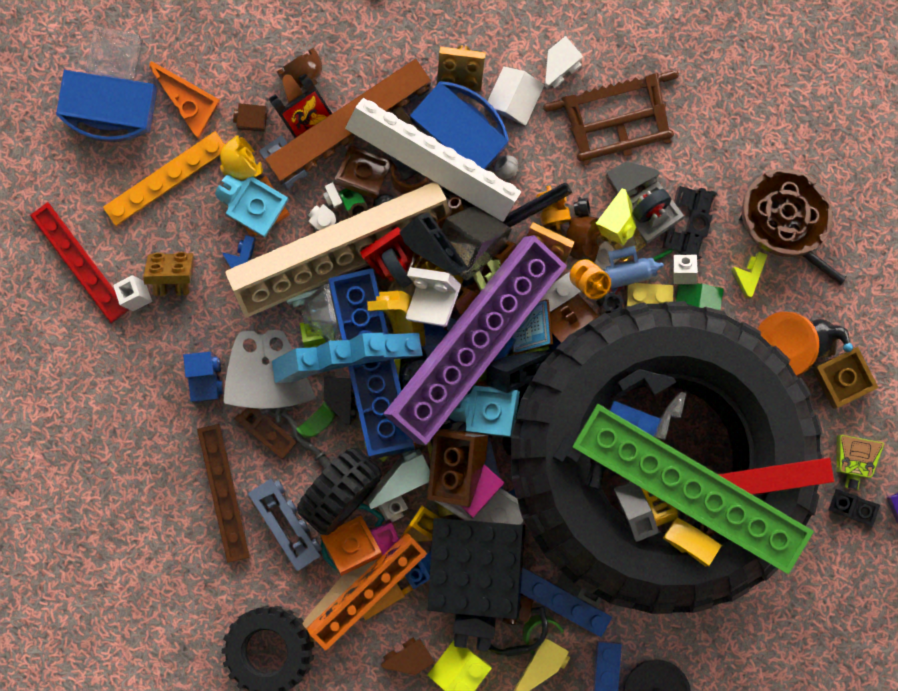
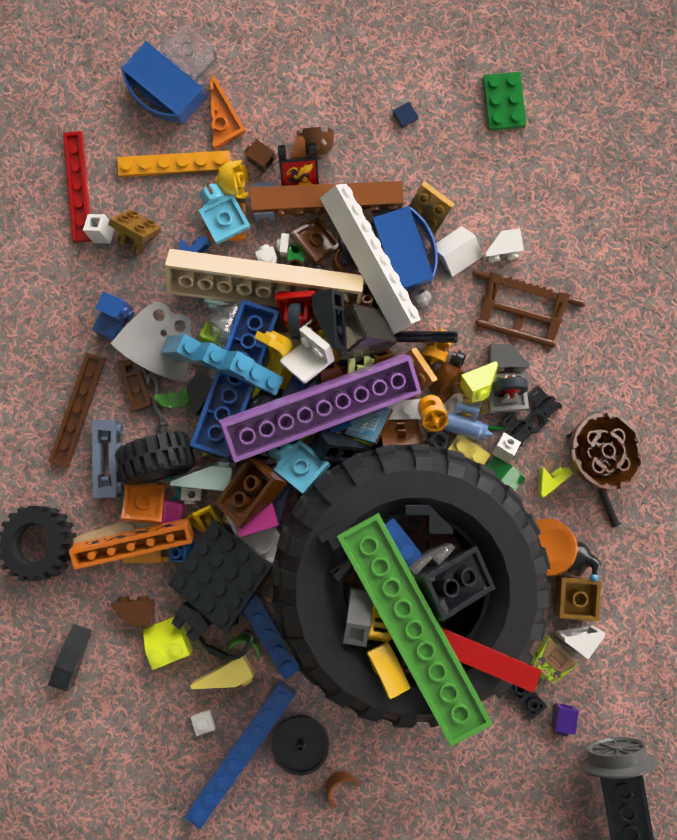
camera: 30 degrees right, 0 degrees up
(705, 425) = (454, 583): none -> black slope
(874, 417) = (582, 639): none -> white slope

